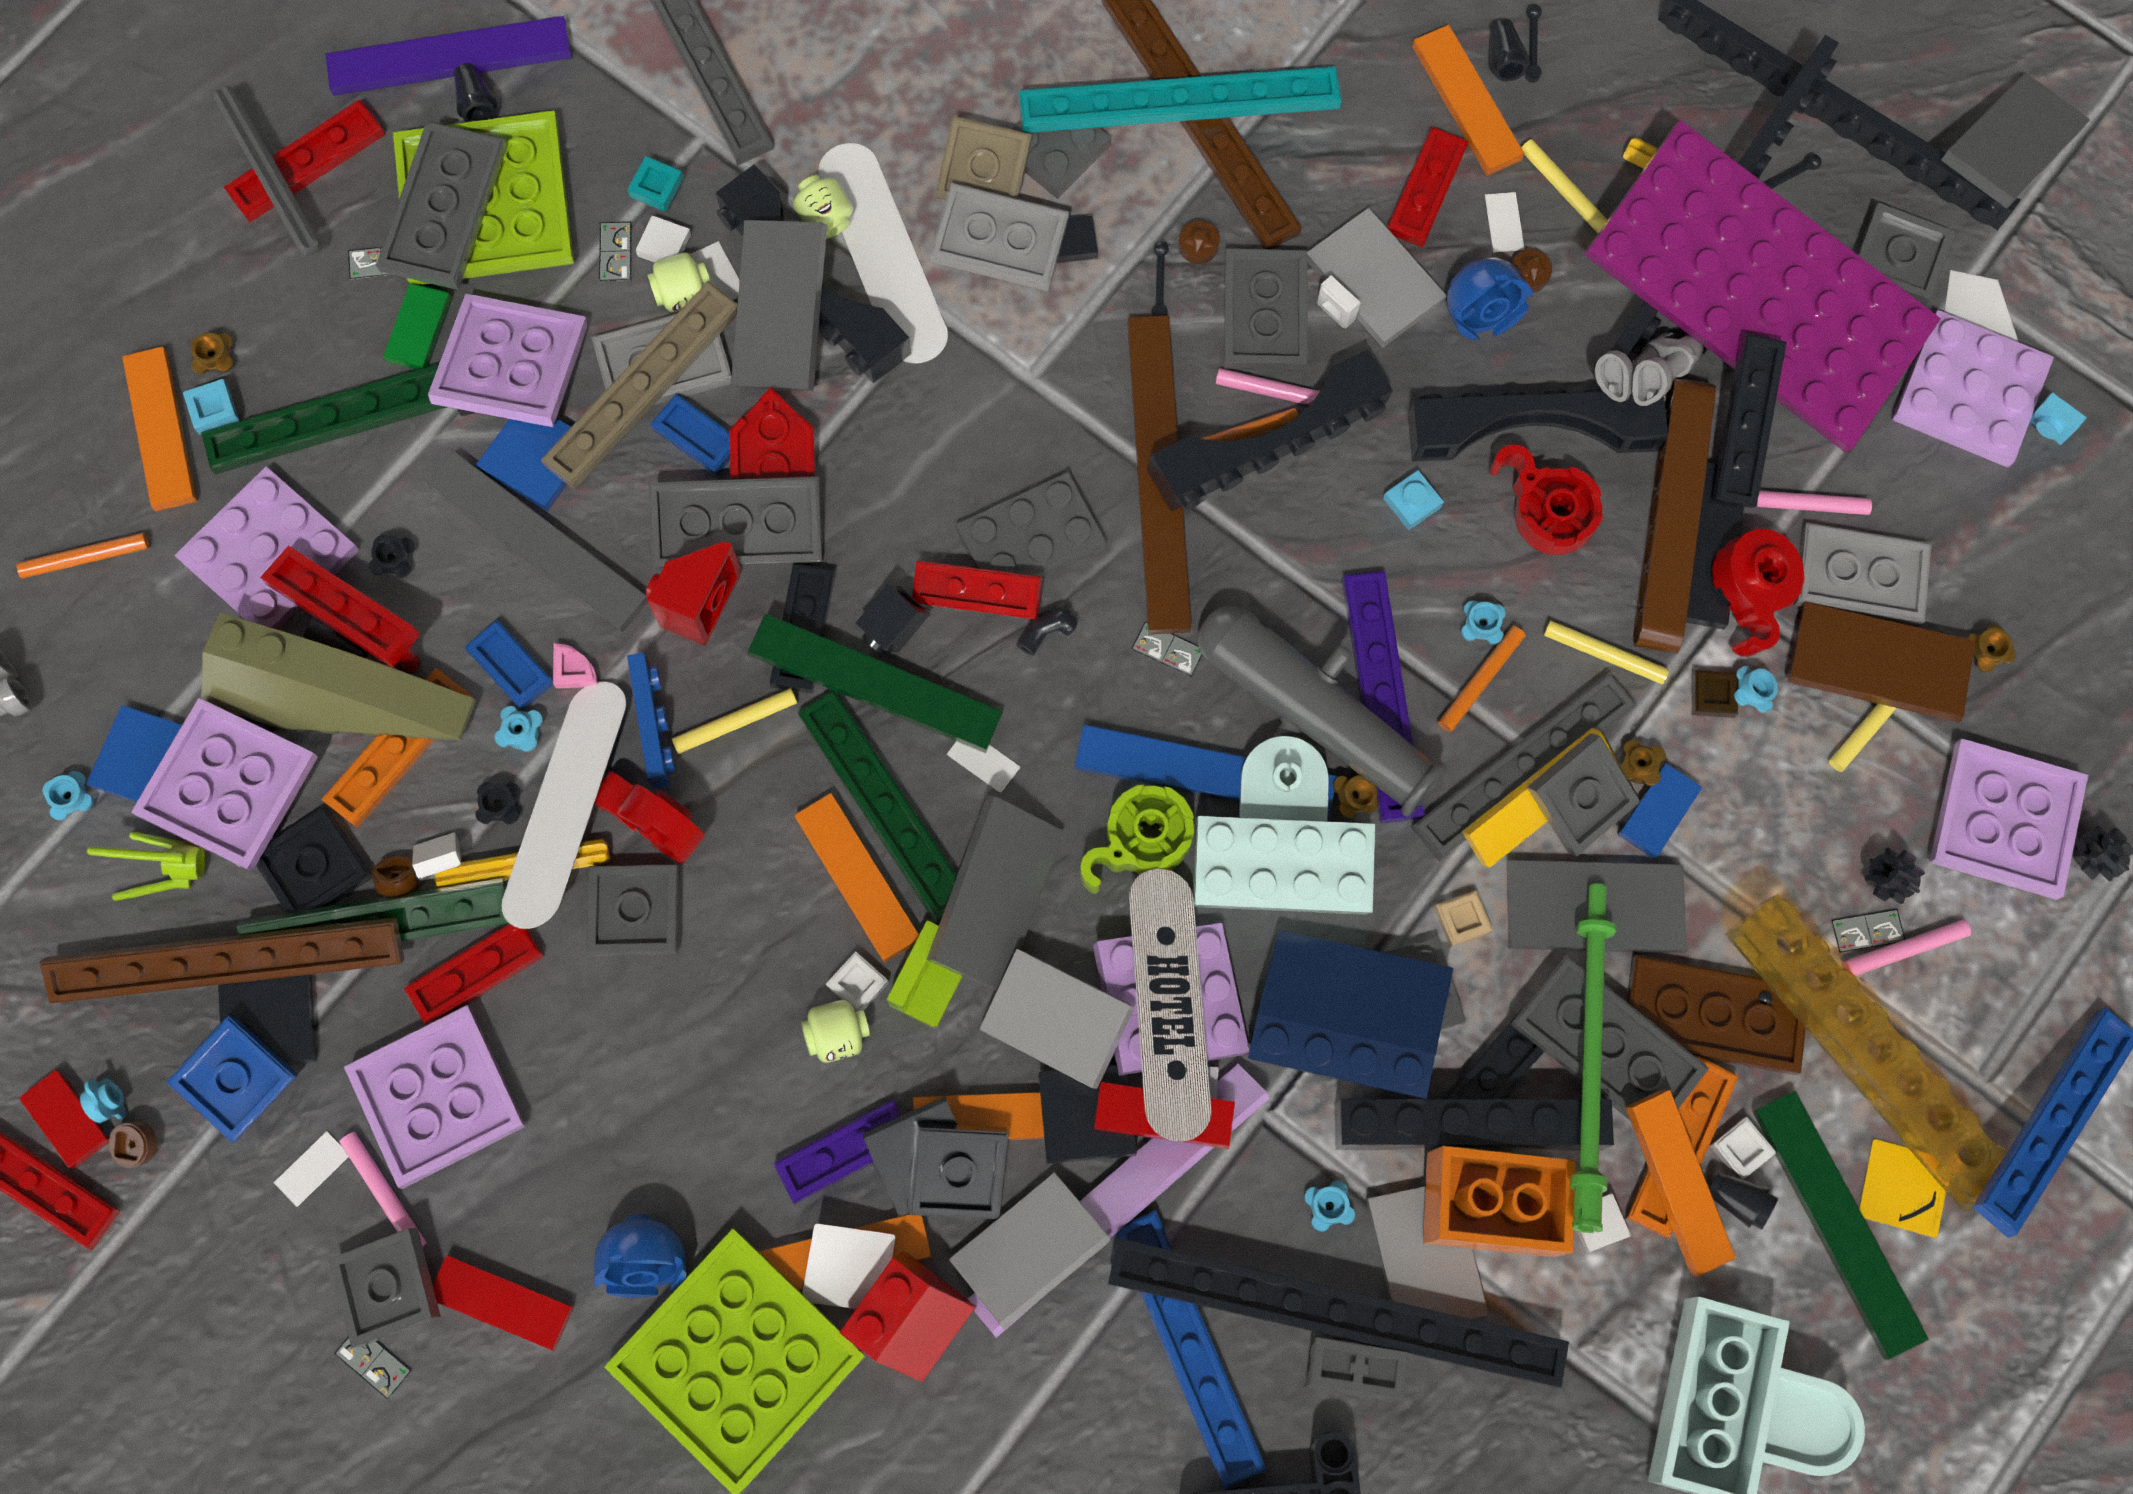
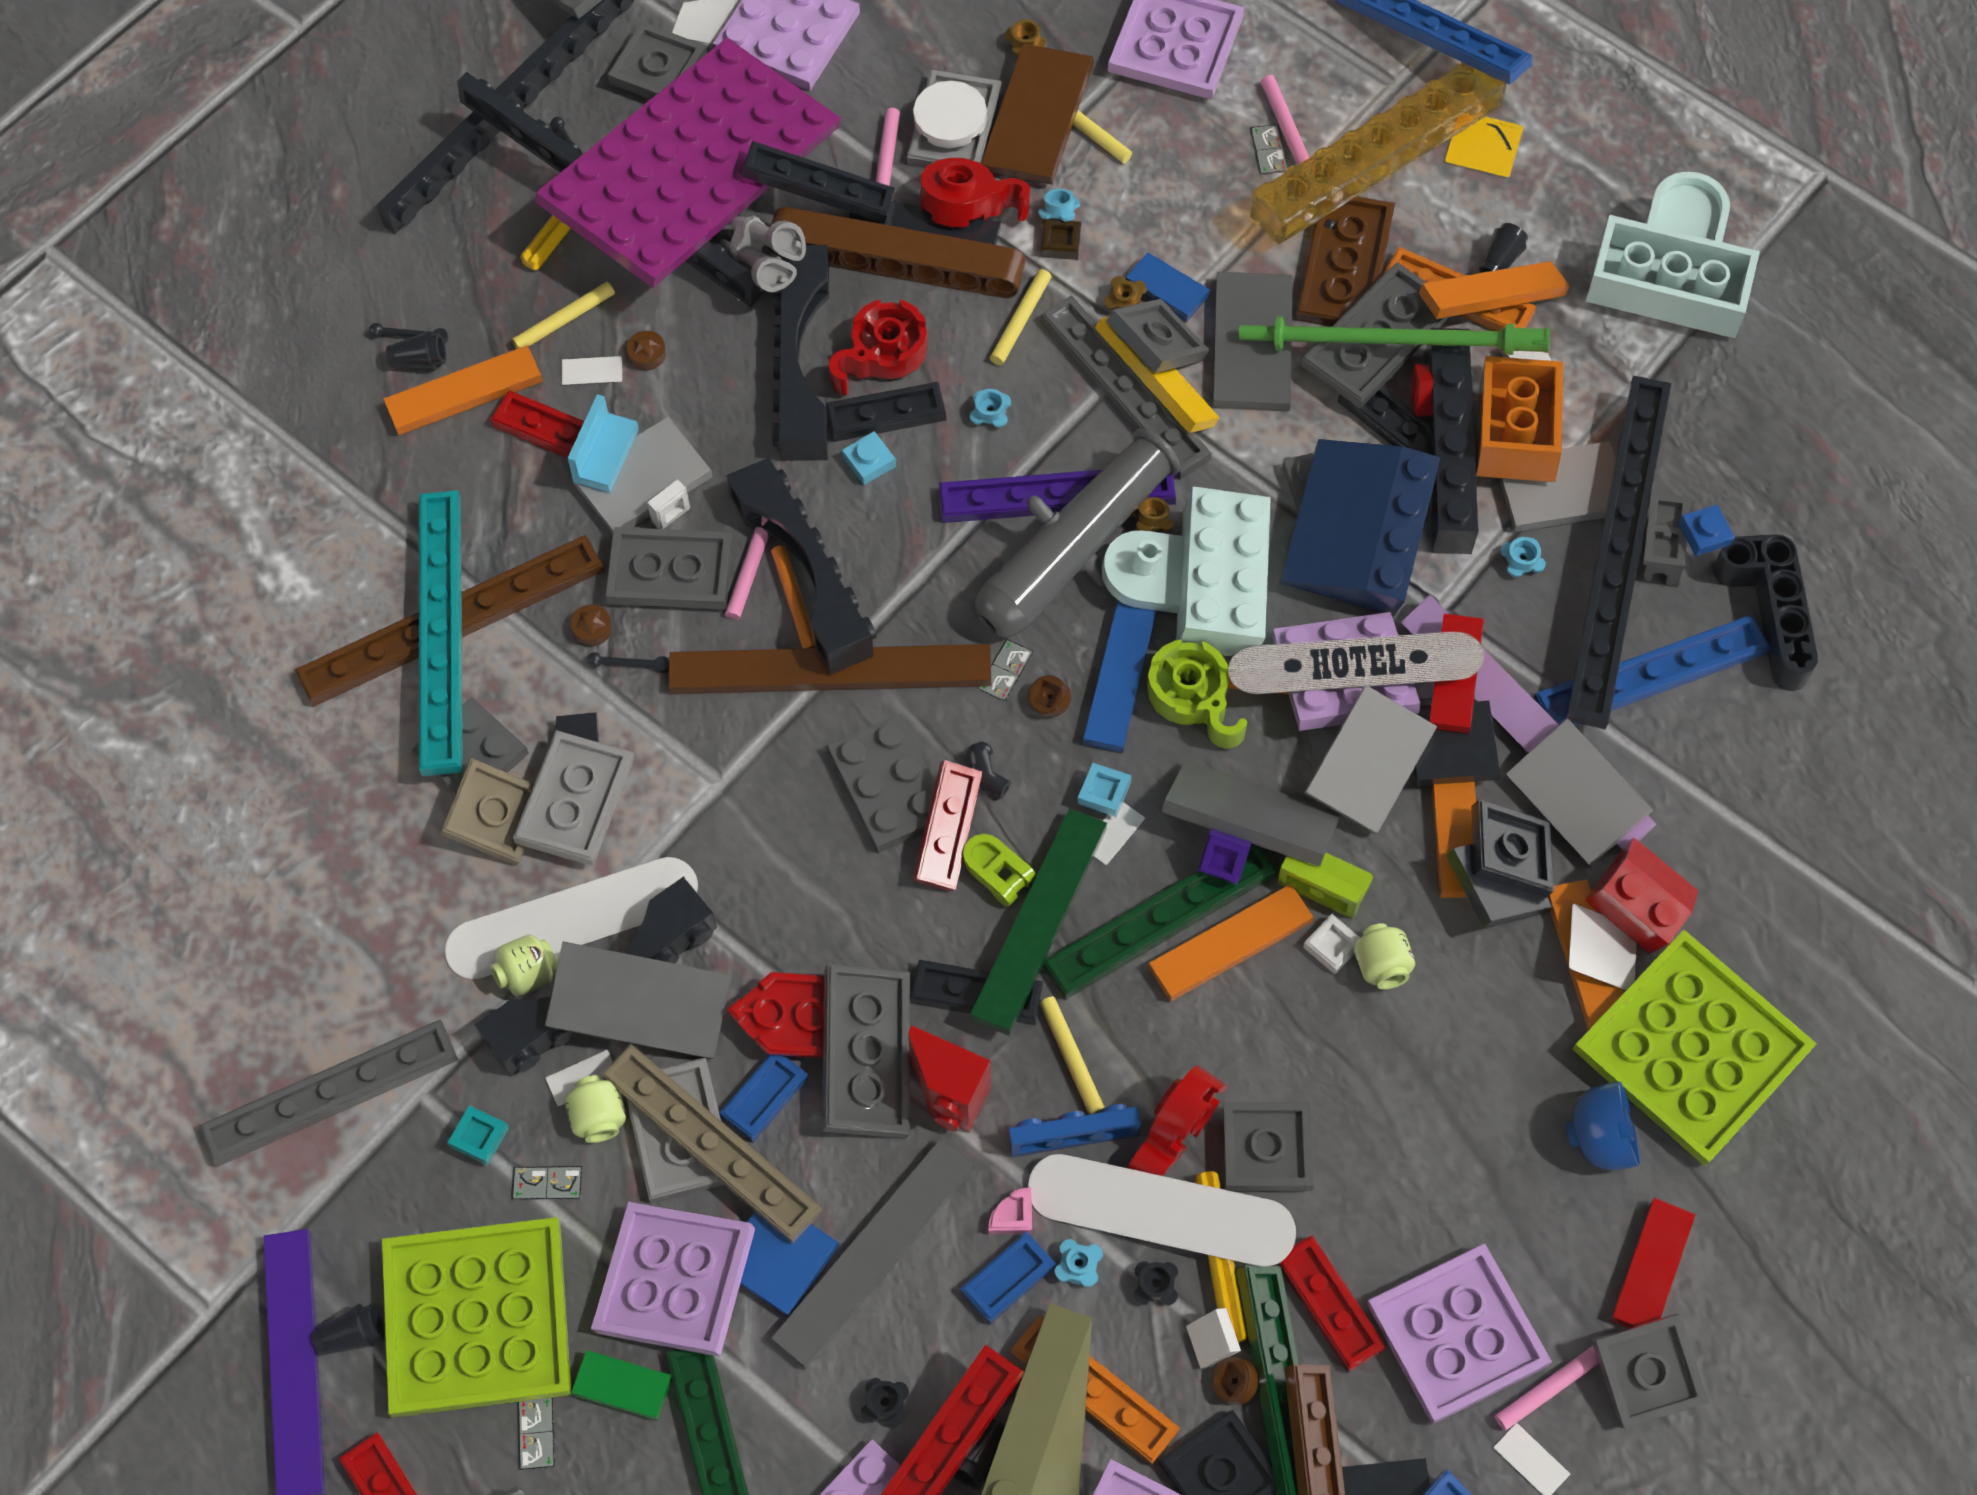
camera: 85 degrees left, 10 degrees down
(375, 1366) = (1721, 1387): light grey sticker -> none
(442, 205) = (486, 1352): dark grey tile -> none
(662, 240) = (543, 1130): white tile -> none
(832, 1156) = (1495, 961): dark purple tile -> none
(891, 619) = (977, 901): black brick -> none
(940, 863) = (1224, 856): none -> dark purple tile
(946, 630) = (986, 857): none -> lime plate
(1024, 746) = (1104, 789): none -> medium azure plate
(1132, 689) = (1049, 696): none -> reddish brown tile
(1356, 1412) = (1706, 530): none -> blue plate
(1398, 227) = (601, 447): none -> medium azure panel
(1463, 919) = (1264, 442): tan tile -> none
(1473, 515) = (886, 411): none -> black tile
(1481, 679) = (1044, 414): orange bar -> none
(1487, 297) = (674, 380): blue cylinder -> none
(1536, 1090) = (1421, 390): none -> red tile
(1742, 1148) = (1458, 250): white tile -> none
(1840, 1226) = (1517, 189): dark green tile -> none
(1866, 563) = (950, 114): none -> white tile
(1894, 875) = (1220, 127): black gear -> none

